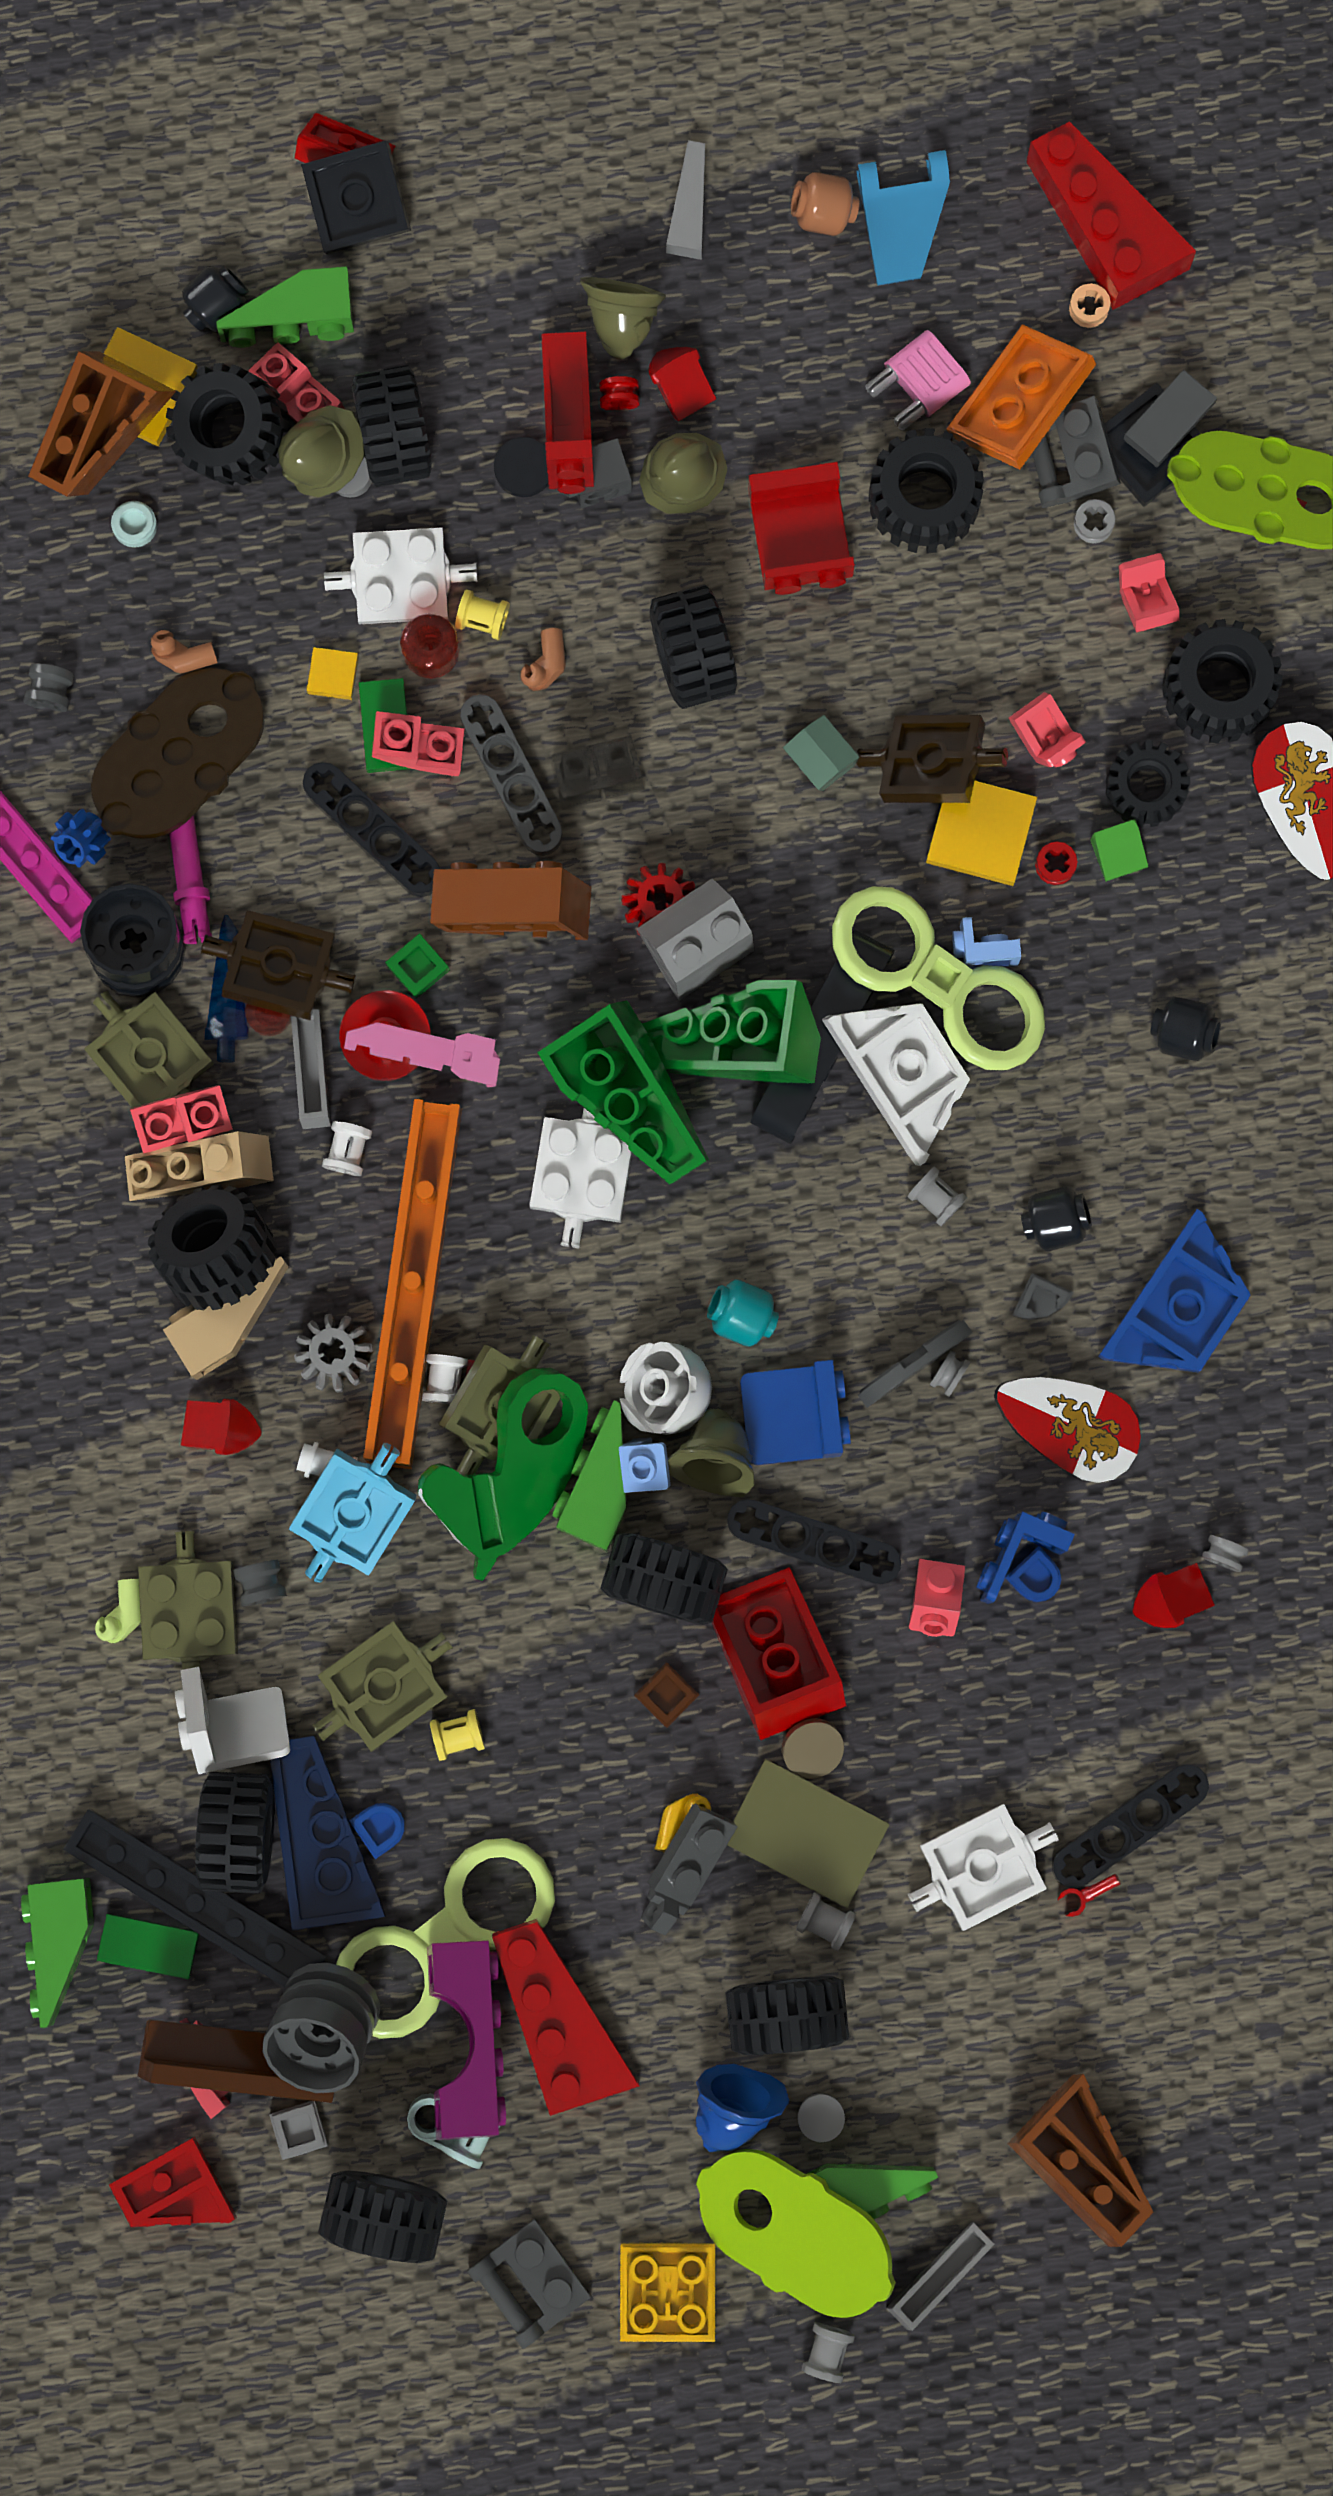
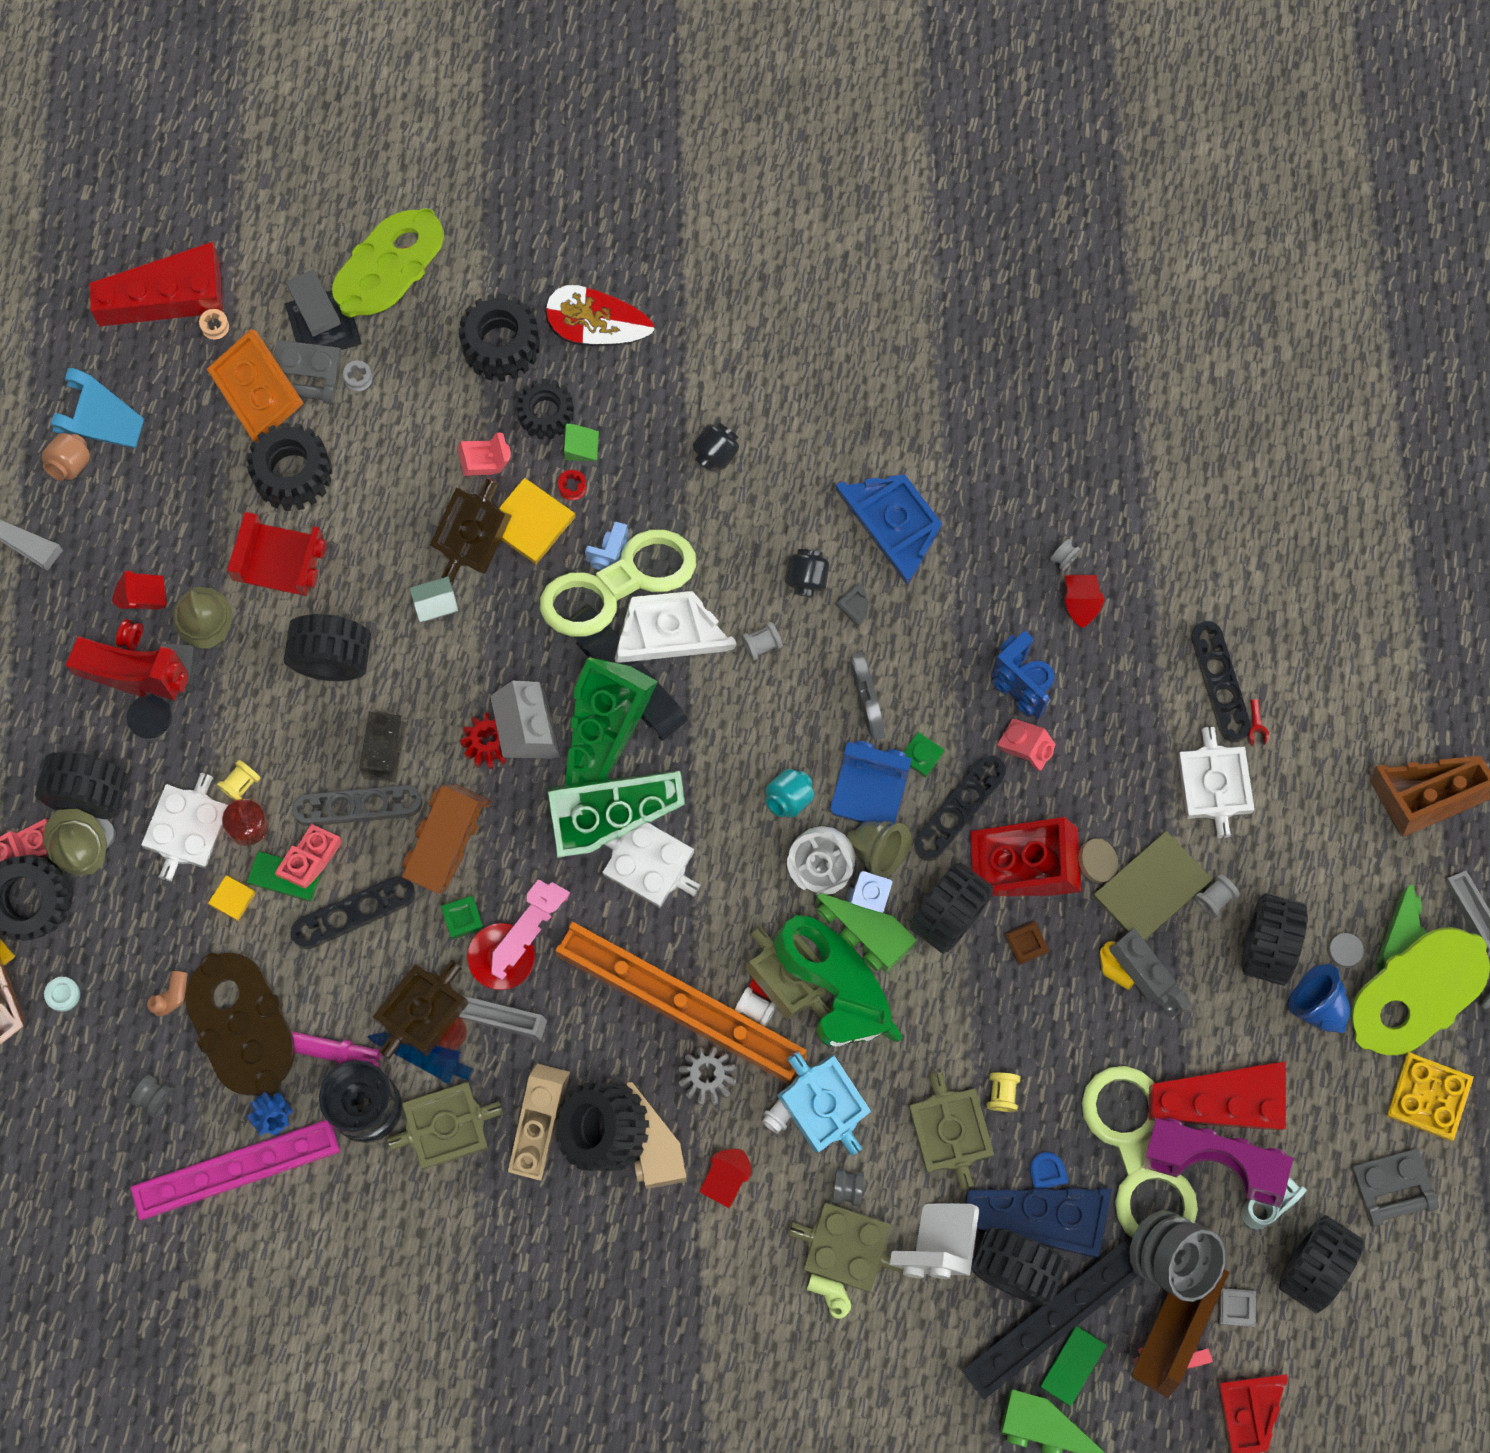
camera: 70 degrees left, 10 degrees down
(181, 1119) = (501, 1117): coral slope -> none
(357, 1137) = (568, 1013): white bush -> none
(549, 665) = (293, 752): nougat arm -> none
(621, 313) = (76, 611): olive piece -> none
(867, 1465) = (923, 753): none -> green plate
(926, 375) = (209, 440): bright pink piece -> none
(950, 1373) = (883, 678): light grey bush -> none
(1072, 1425) = (947, 614): shield -> none
(1147, 593) = (421, 361): coral bracket -> none

